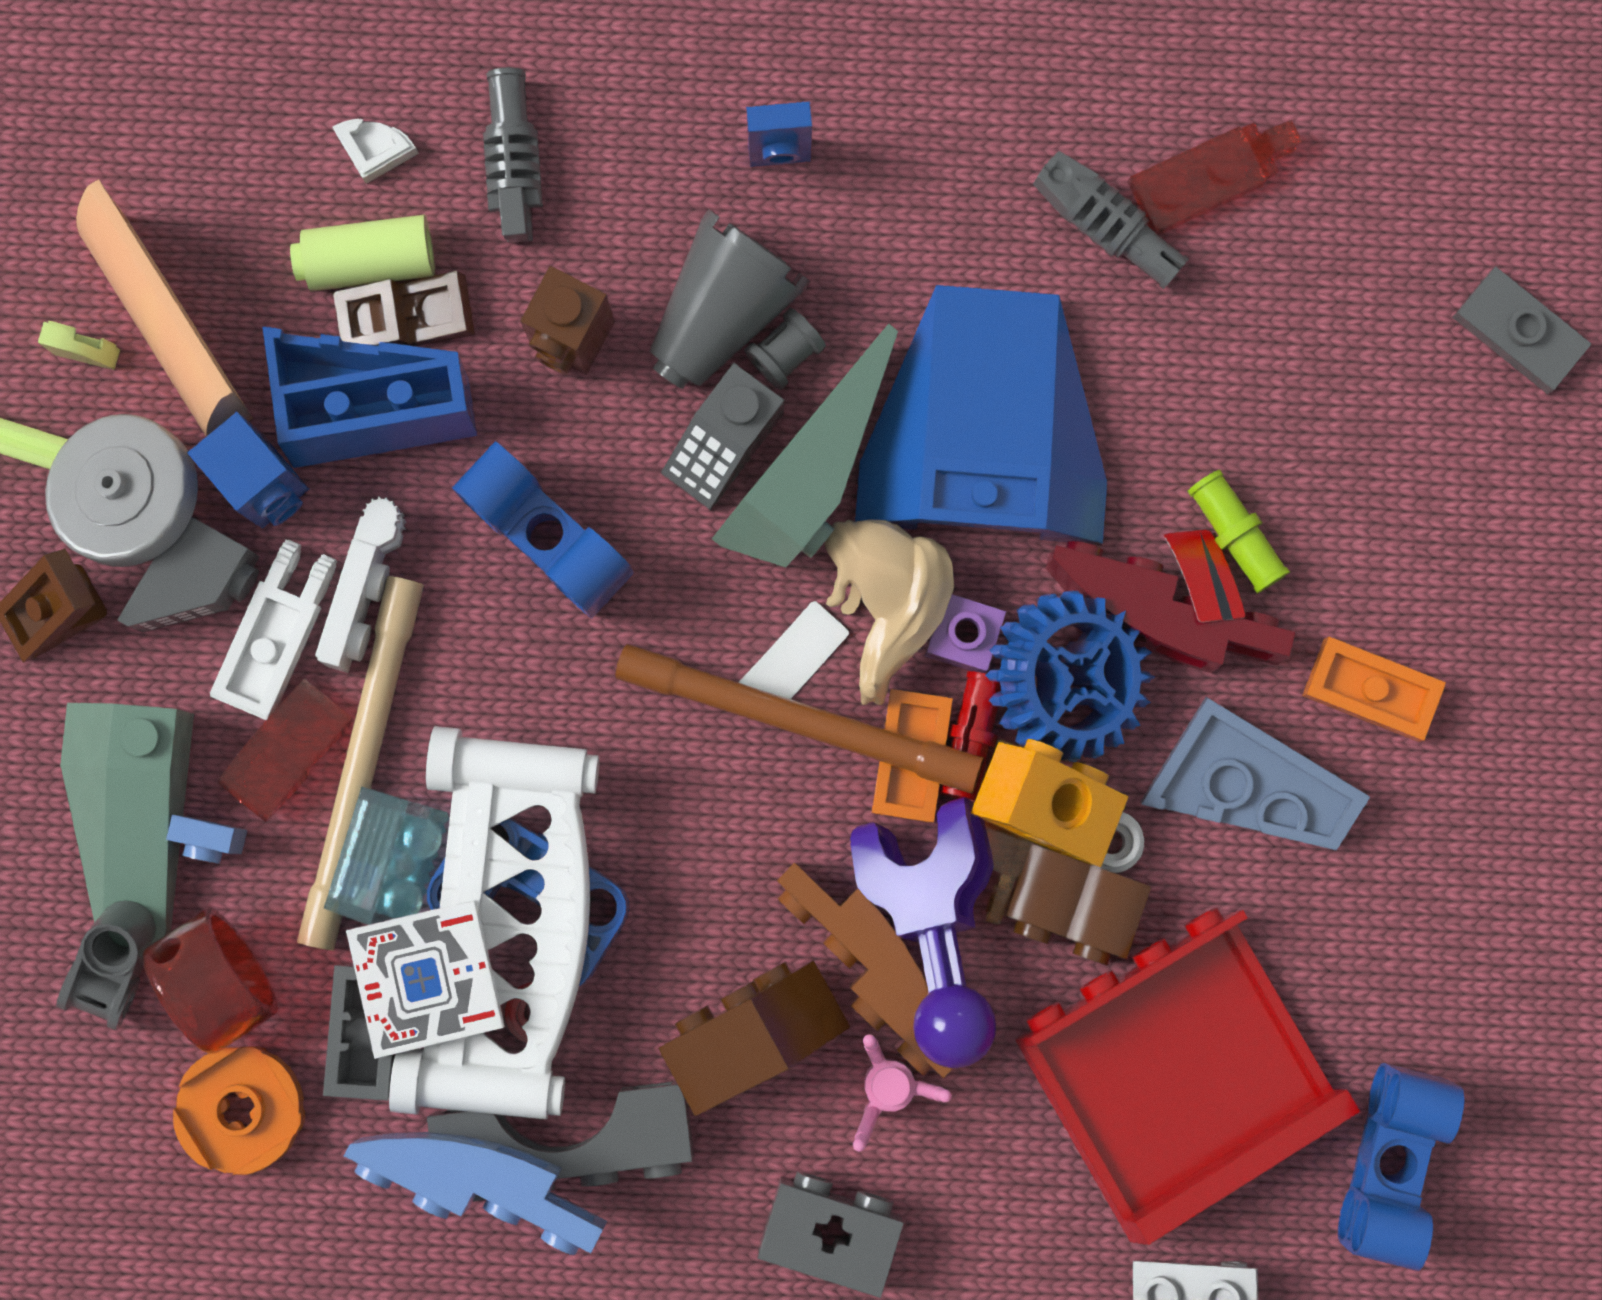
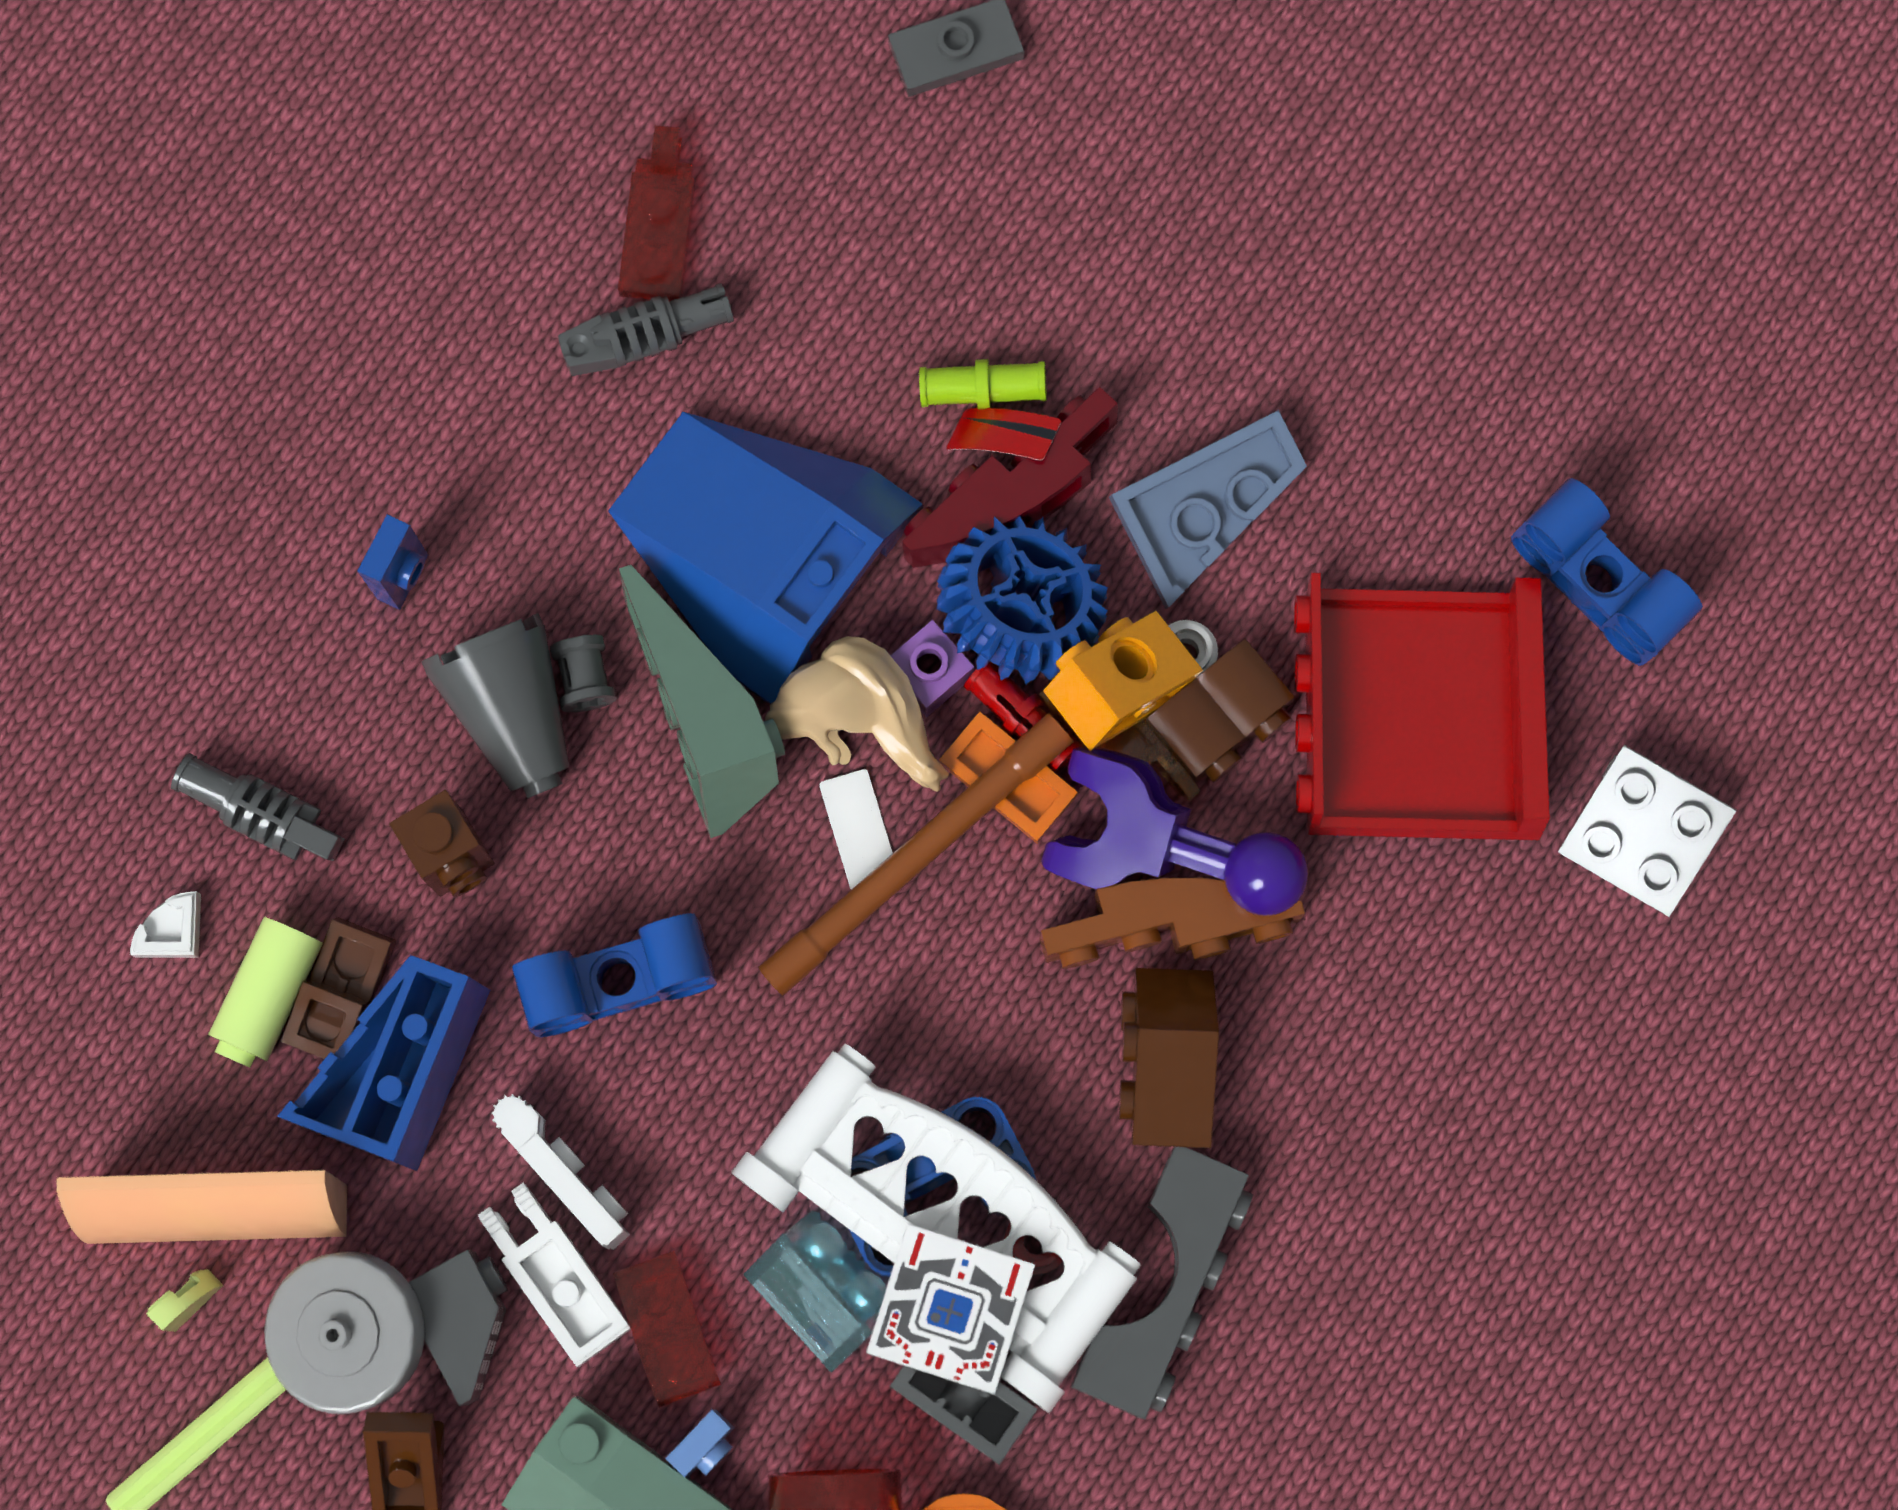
camera: 55 degrees left, 5 degrees down
(250, 472) = (401, 1205): blue brick -> none
(392, 632) = (620, 1170): tan piece -> none
(453, 1169) = (1134, 1383): medium blue slope -> none
(723, 436) = (627, 773): dark grey slope -> none
(852, 1262) = (1419, 1082): dark grey brick -> none
(889, 1088) = (1286, 966): bright pink plant -> none
(1374, 689) = (1188, 353): orange plate -> none

